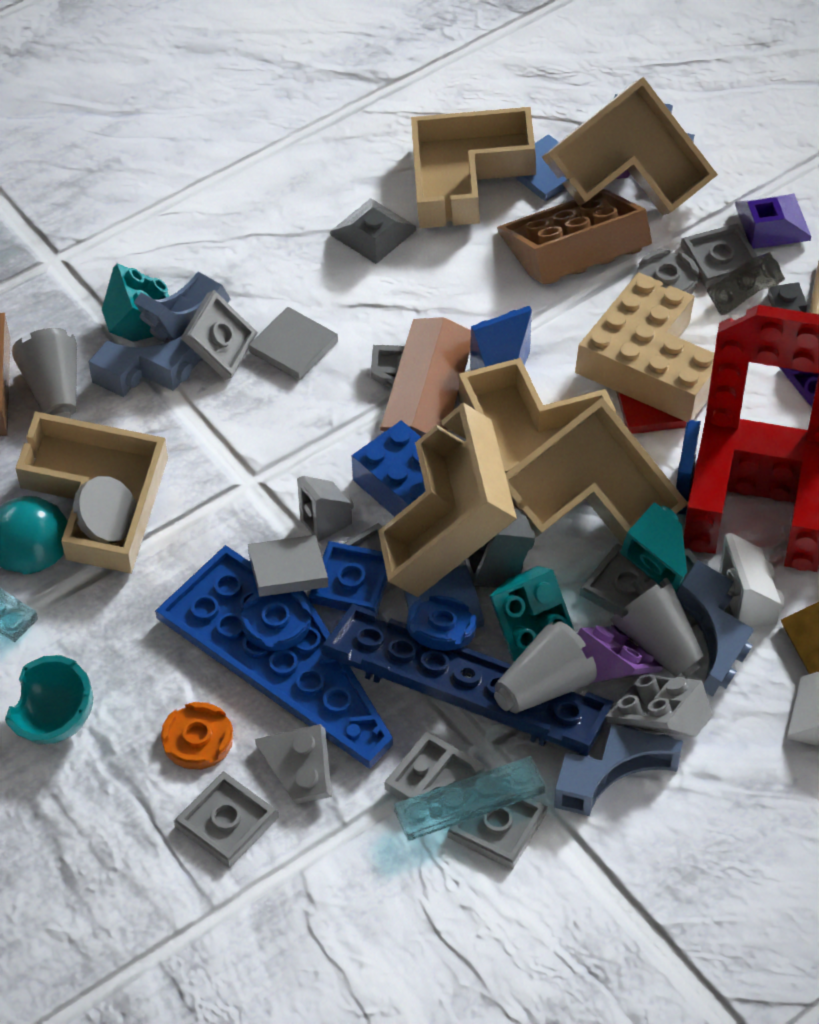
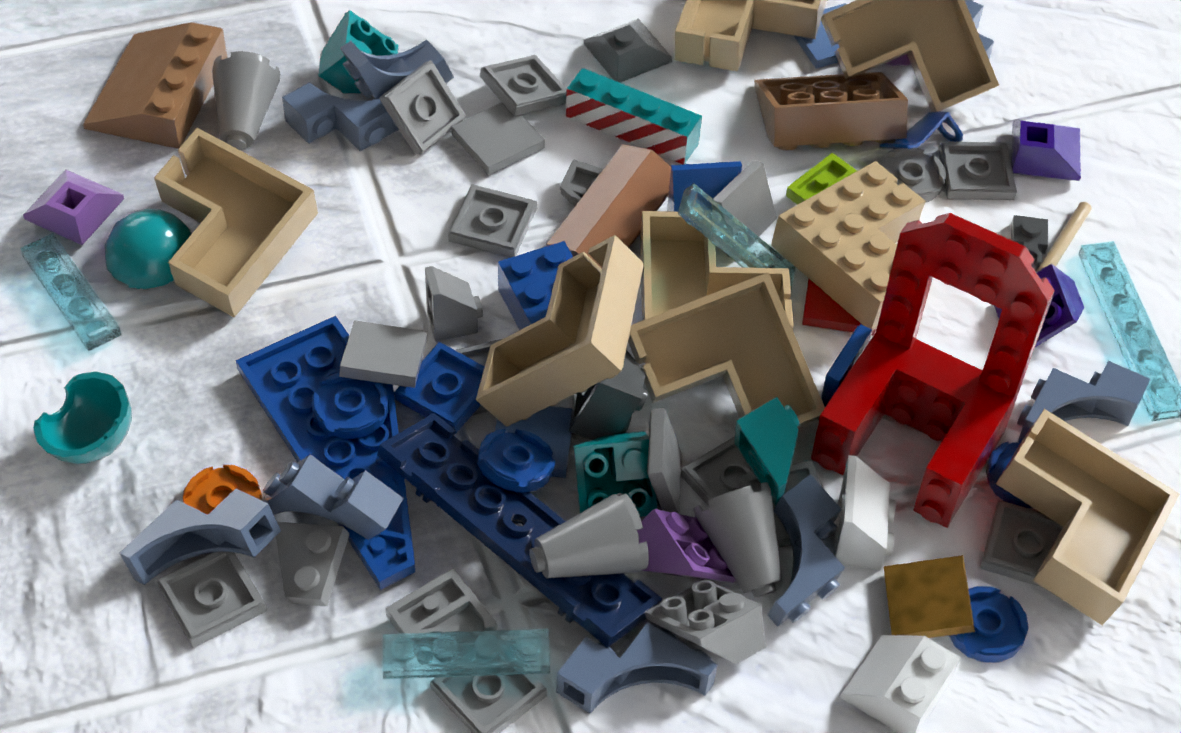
camera: 15 degrees right, 0 degrees up
(104, 509) = (224, 242): light grey tile -> none
(179, 772) = (181, 532): none -> sand blue arch
(279, 699) = (313, 488): none -> sand blue arch
(297, 288) = (524, 85): none -> light grey tile
(322, 420) = (492, 221): none -> light grey tile
(407, 290) = (633, 116): none -> brick
(541, 371) = (729, 233): none -> clear light blue plate
(543, 347) = (749, 198): none -> light grey tile
(567, 585) = (664, 461): none -> light grey tile
(594, 302) = (821, 176): none -> lime plate
(665, 231) = (923, 130): none -> blue piece
(744, 282) = (991, 201): clear smoke bracket -> none

